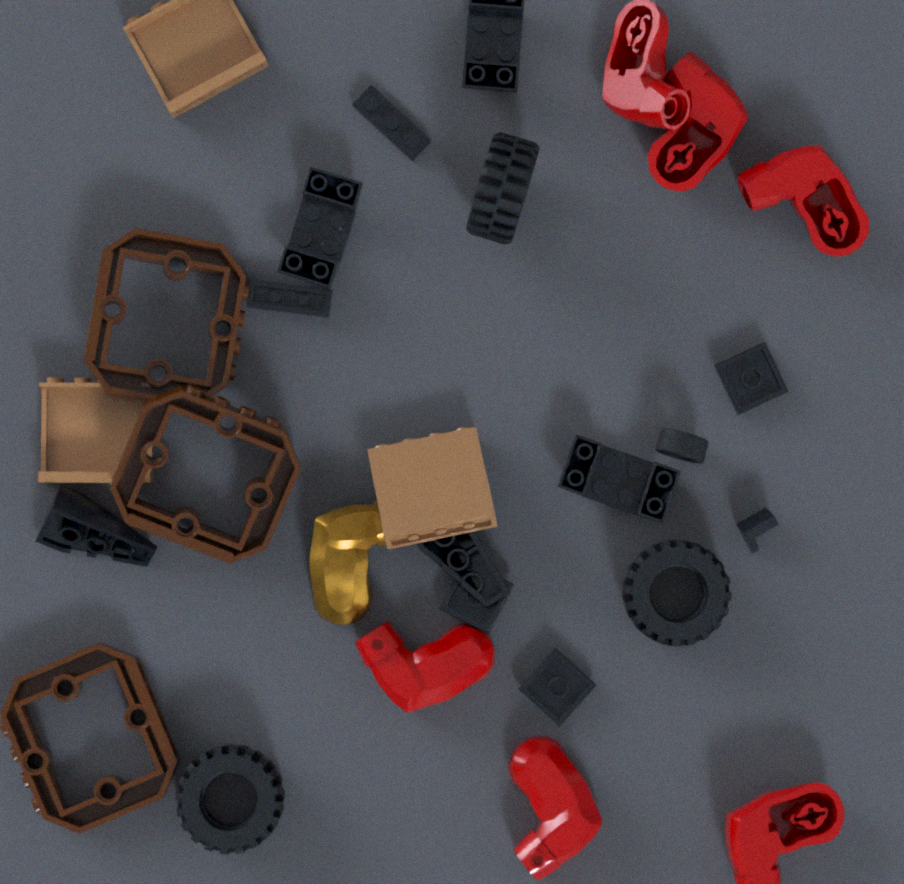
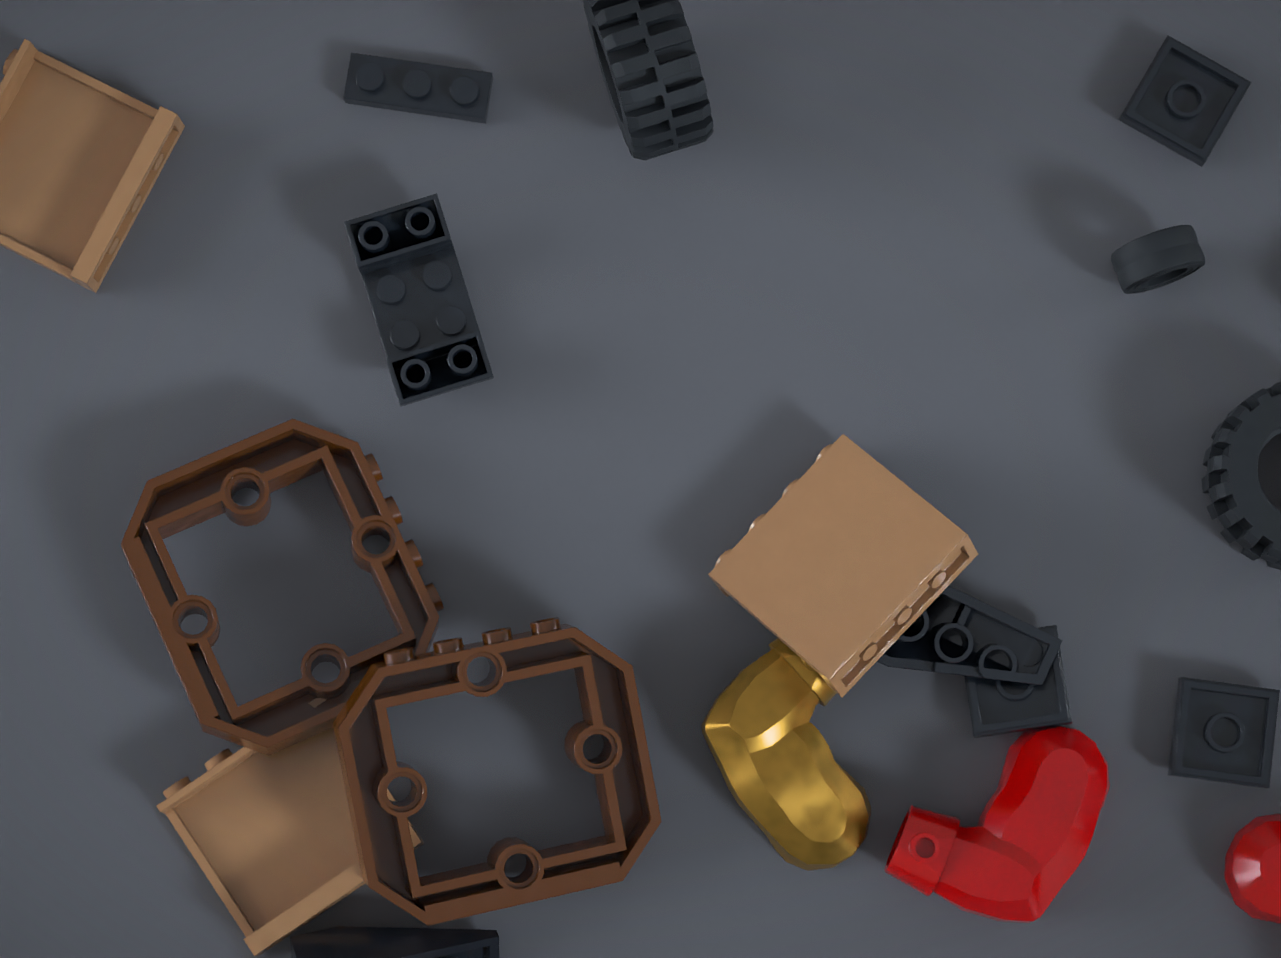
camera: 30 degrees left, 5 degrees down
(289, 298) = (443, 435): black plate -> none
(619, 479) = (1103, 369): black slope -> none

